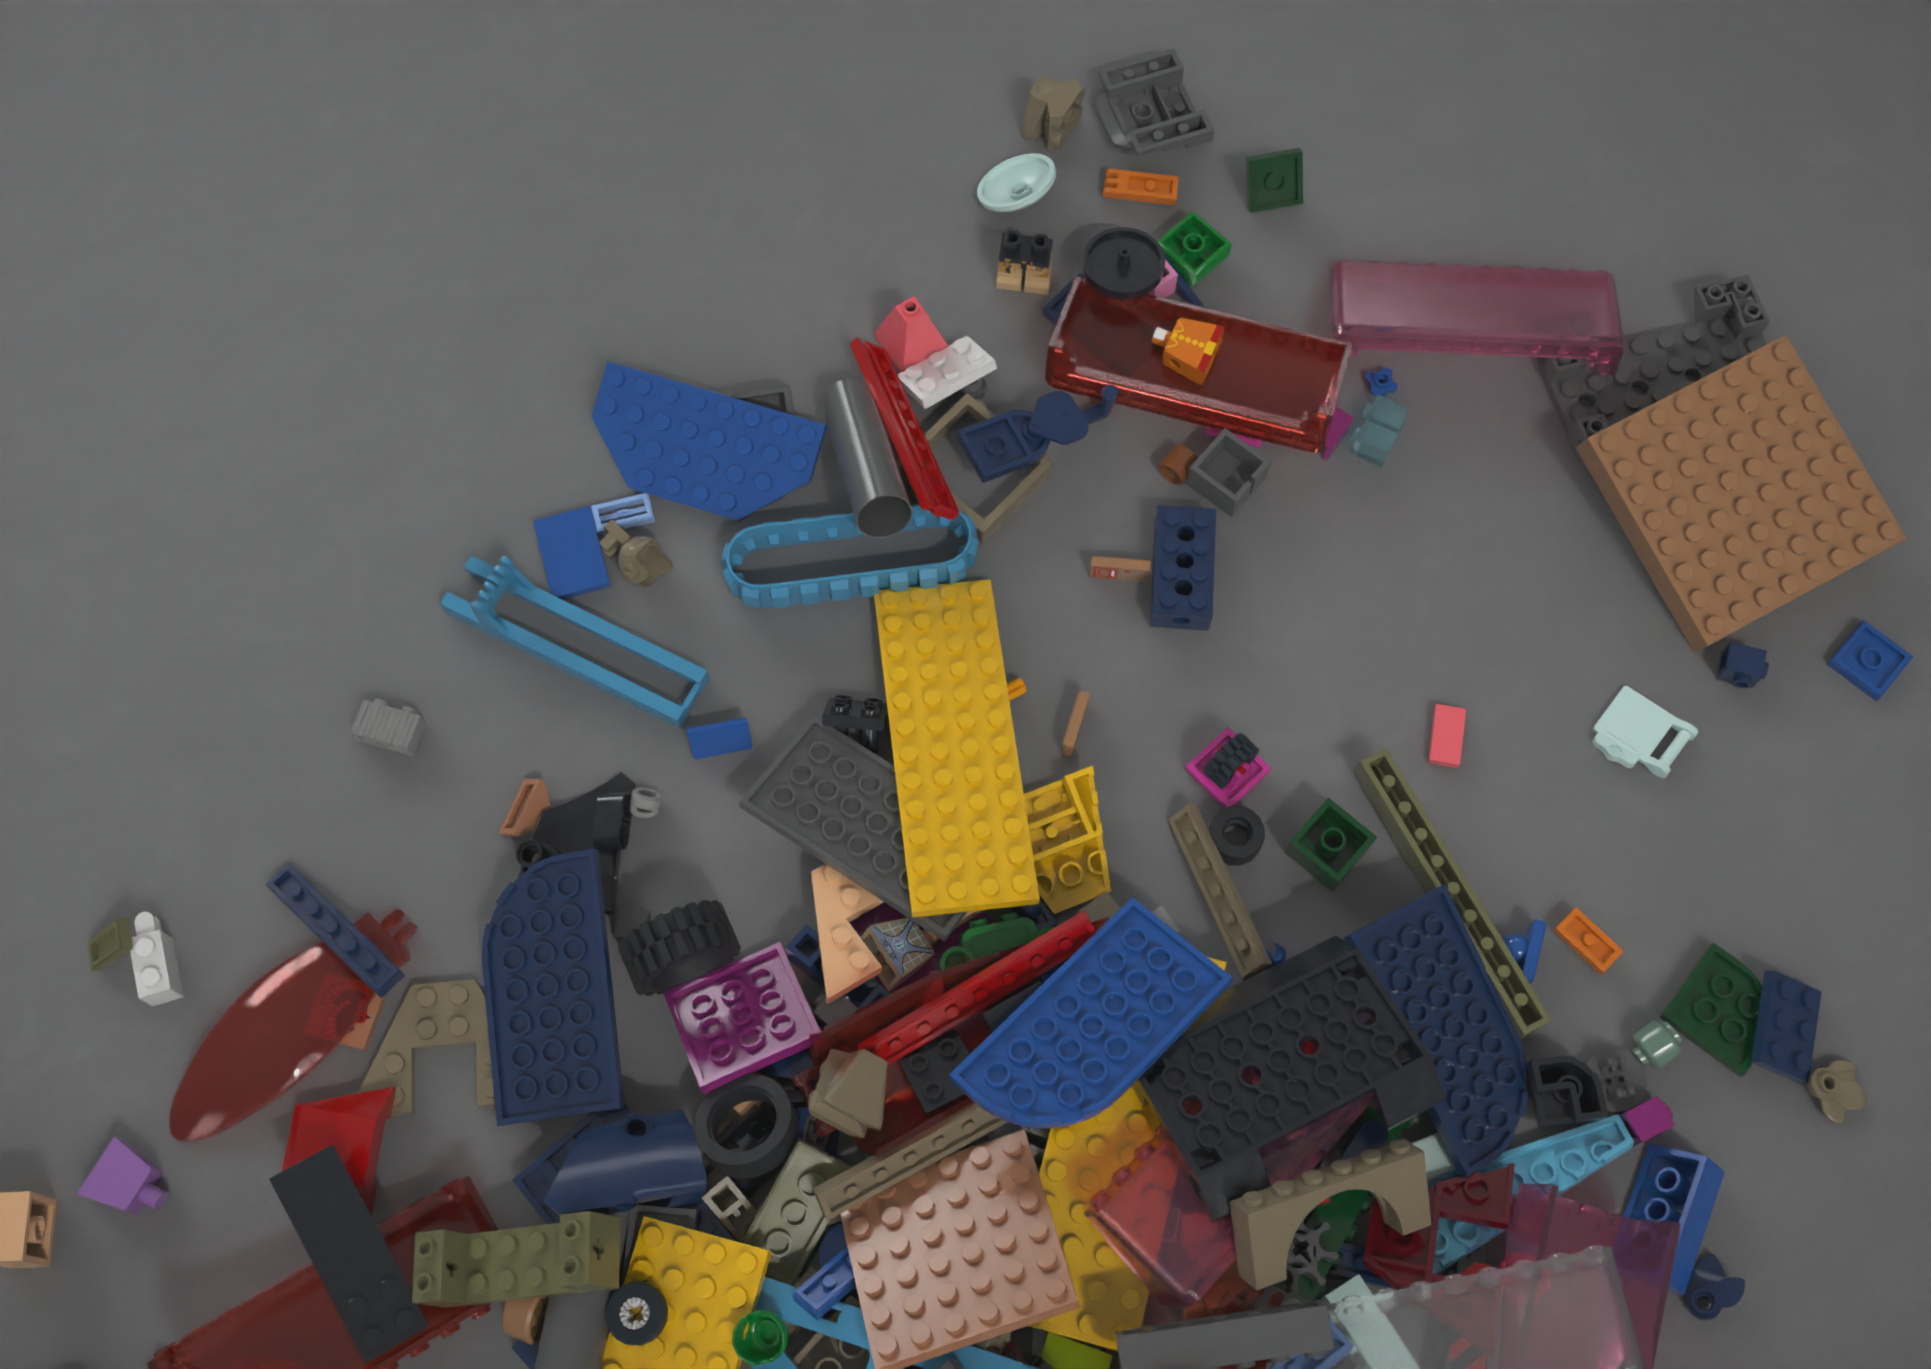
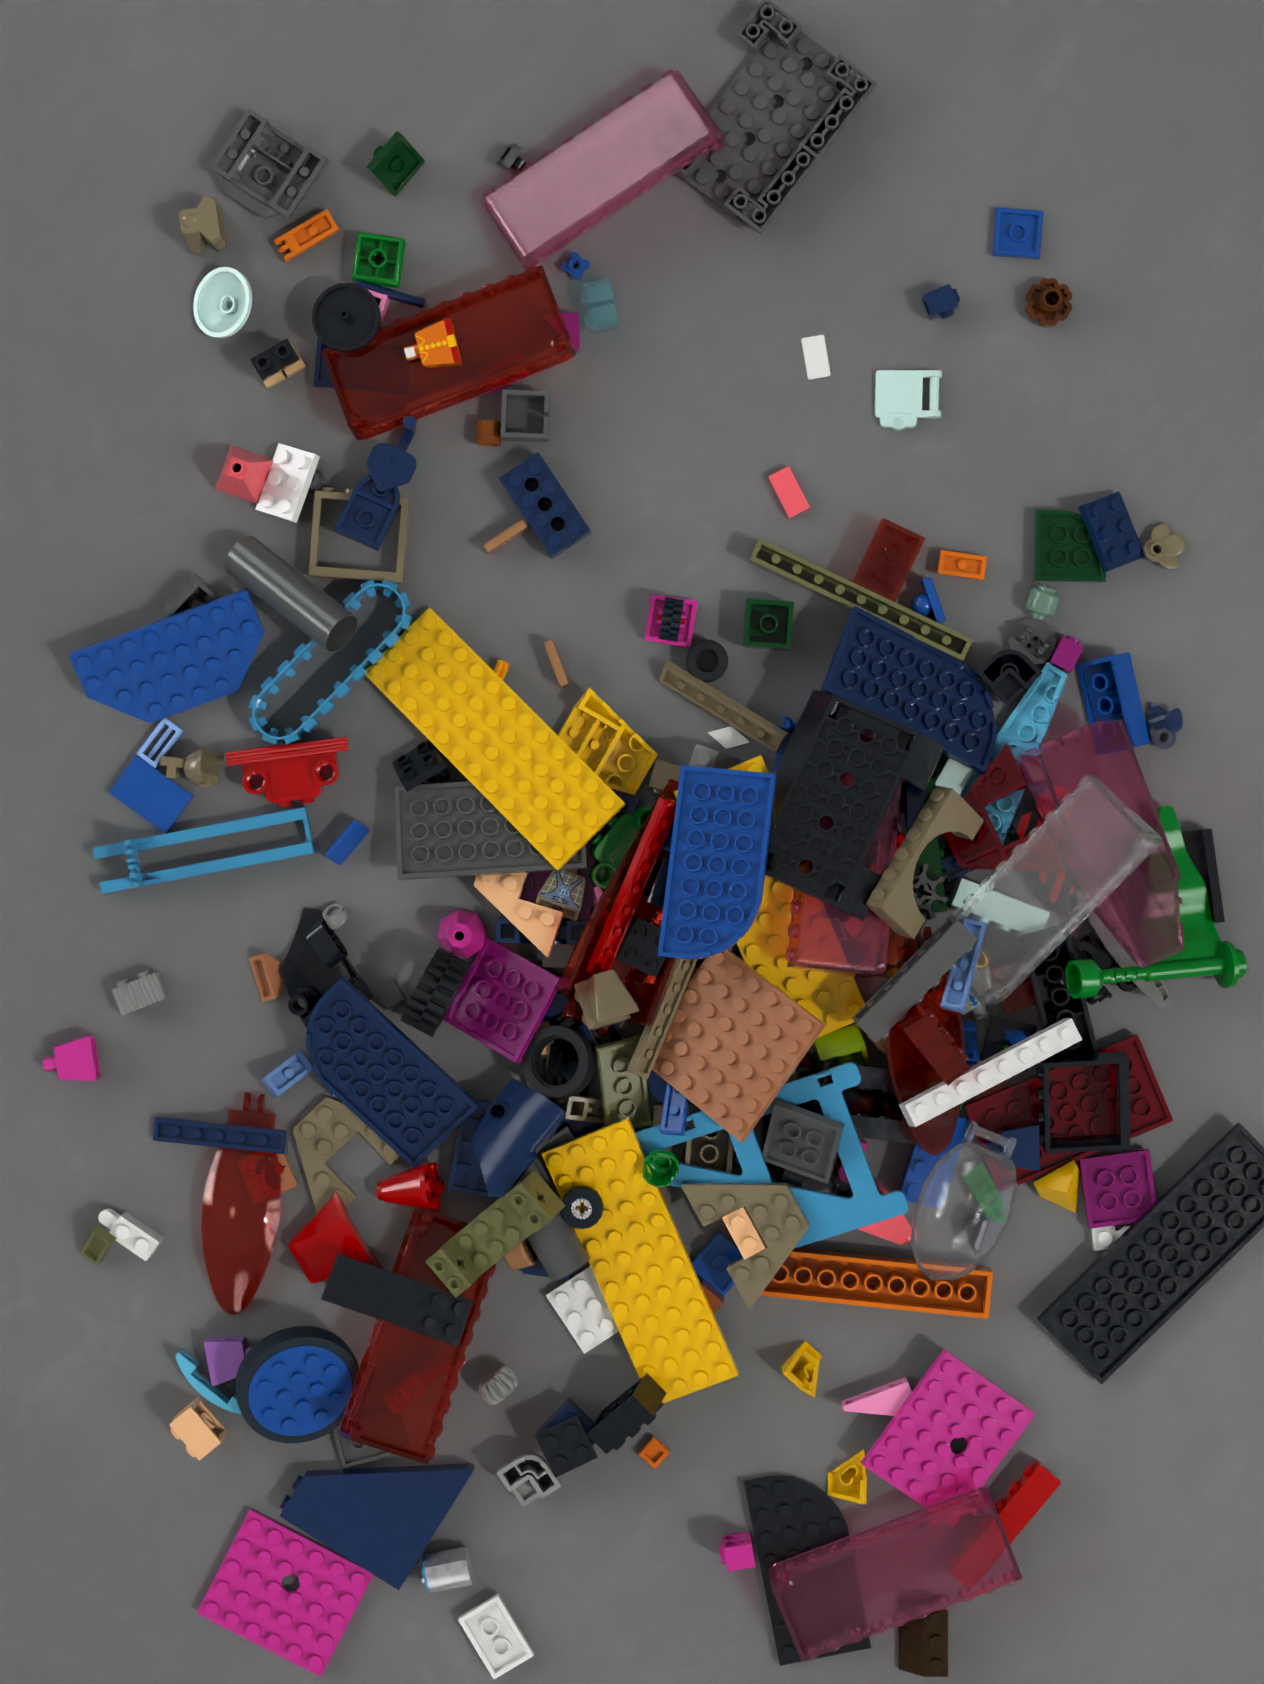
camera: 35 degrees left, 20 degrees up
(77, 1153) = (187, 1365): none -> medium azure slope
(159, 1262) = (296, 1384): none -> blue wheel
(267, 743) = (75, 1060): none -> dark pink torso
(451, 921) = (287, 1074): none -> medium blue plate
(479, 1149) = (413, 1188): none -> red cone
(725, 627) = (290, 770): none -> red brick
(759, 919) = (472, 928): none -> dark pink cone
(904, 430) = (296, 551): red plate -> none
(1200, 933) = (728, 737): none -> white sticker
(1389, 250) = (511, 158): none -> black tile
(1514, 871) = (888, 559): none -> clear red brick
(1568, 630) = (815, 357): none -> white sticker
(1740, 493) = (863, 181): medium nougat brick -> none
(1862, 746) = (1038, 307): none -> reddish brown plant

